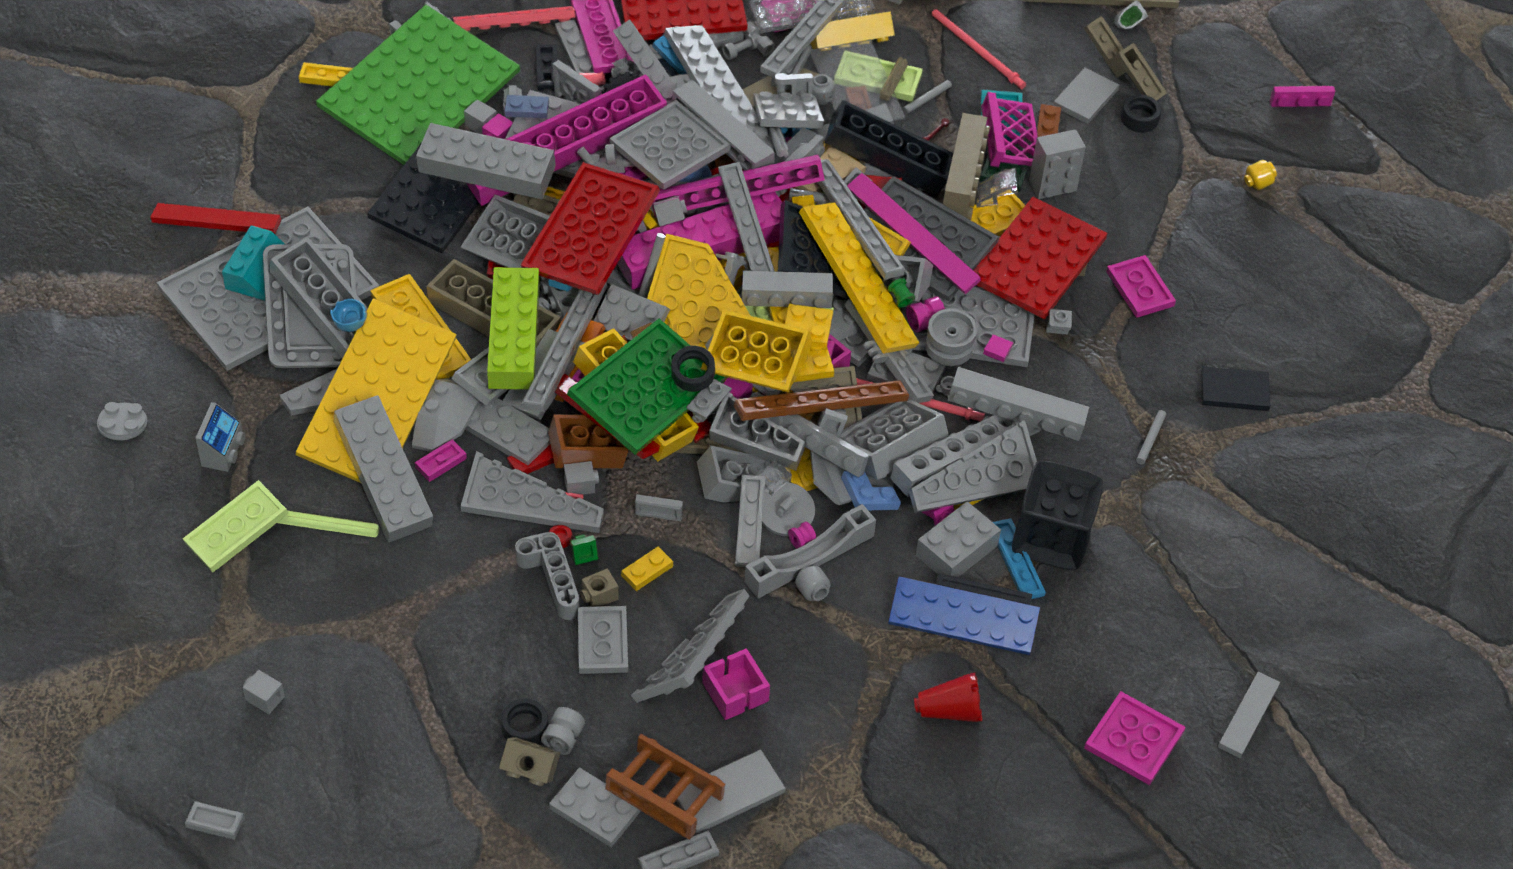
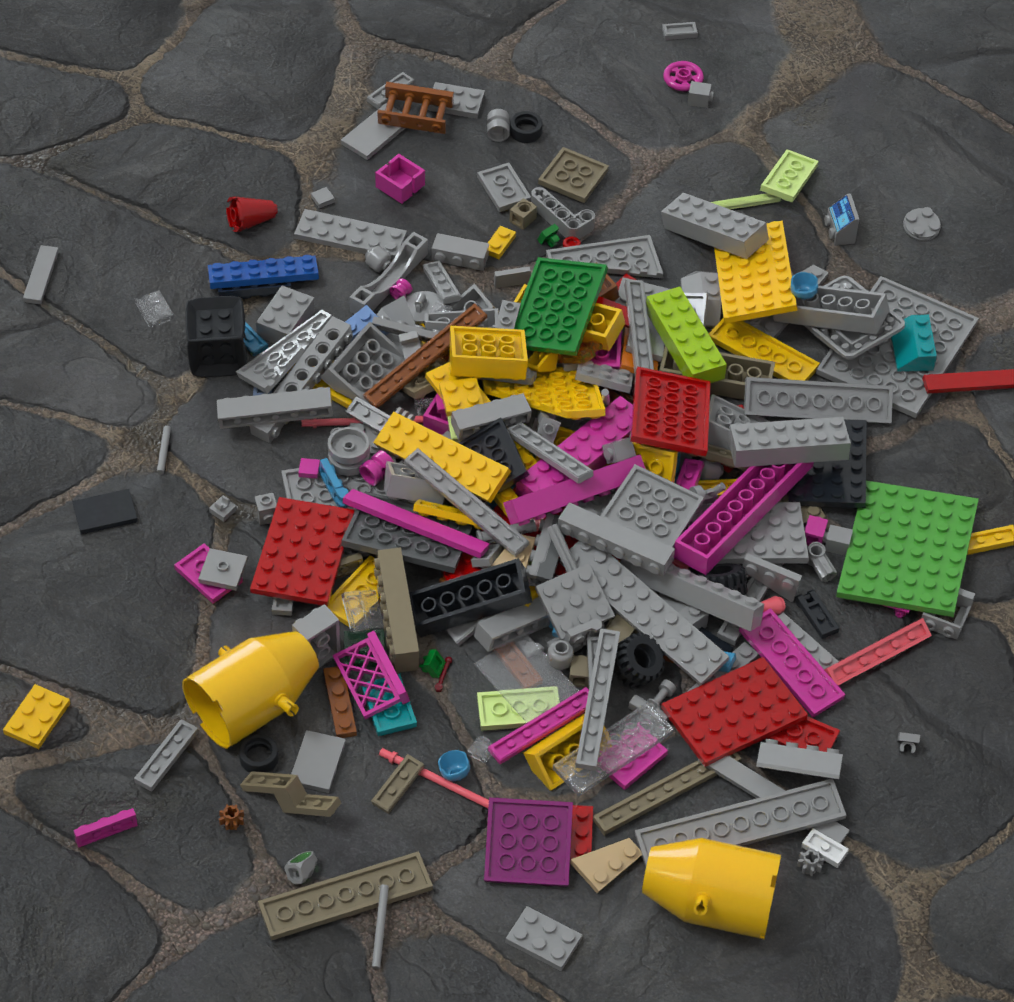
camera: 160 degrees right, 0 degrees up
(267, 753) = (682, 75): none -> dark pink plate
(410, 238) = (817, 400): none -> light grey plate
(440, 460) = (684, 263): dark pink plate -> none
(503, 628) = (573, 174): none -> dark tan plate
(526, 106) = (798, 534): sand blue plate -> none
(544, 761) = (509, 101): dark tan brick -> none
(690, 655) = (439, 187): light grey wing -> none
(693, 352) = (528, 310): black tyre -> none
(705, 562) = (460, 251): none -> light grey brick
(746, 61) = (649, 655): none -> black tyre
(831, 642) = (348, 233): none -> light grey plate
(844, 708) = (322, 197): none -> light grey tile
(866, 45) = (539, 727): none -> dark pink tile
(893, 79) = (501, 694): dark tan axle -> none
(901, 292) = (399, 455): green bush -> none
(926, 97) = (465, 707): light grey bar -> none
(928, 59) = (479, 749): none -> clear tile
(944, 135) = (433, 663): none -> green tile
(962, 44) = (454, 765): none -> dark azure hair
(977, 310) = (332, 483): none -> dark azure hinge
(1018, 52) = (397, 784): none -> dark tan tile
(1104, 351) = (222, 508): none -> light grey tile
(1114, 618) = (154, 308): none -> clear plate
(1126, 274) = (223, 569): none -> light grey plate
(1134, 738) = (118, 233): dark pink plate -> none
(1143, 131) = (250, 685): none -> yellow piece
(1183, 70) = (231, 817): none -> dark orange gear
(1229, 138) = (166, 755): none -> light grey plate
(1260, 175) = (127, 719): yellow head -> none
(1348, 212) = (36, 716): none -> yellow plate

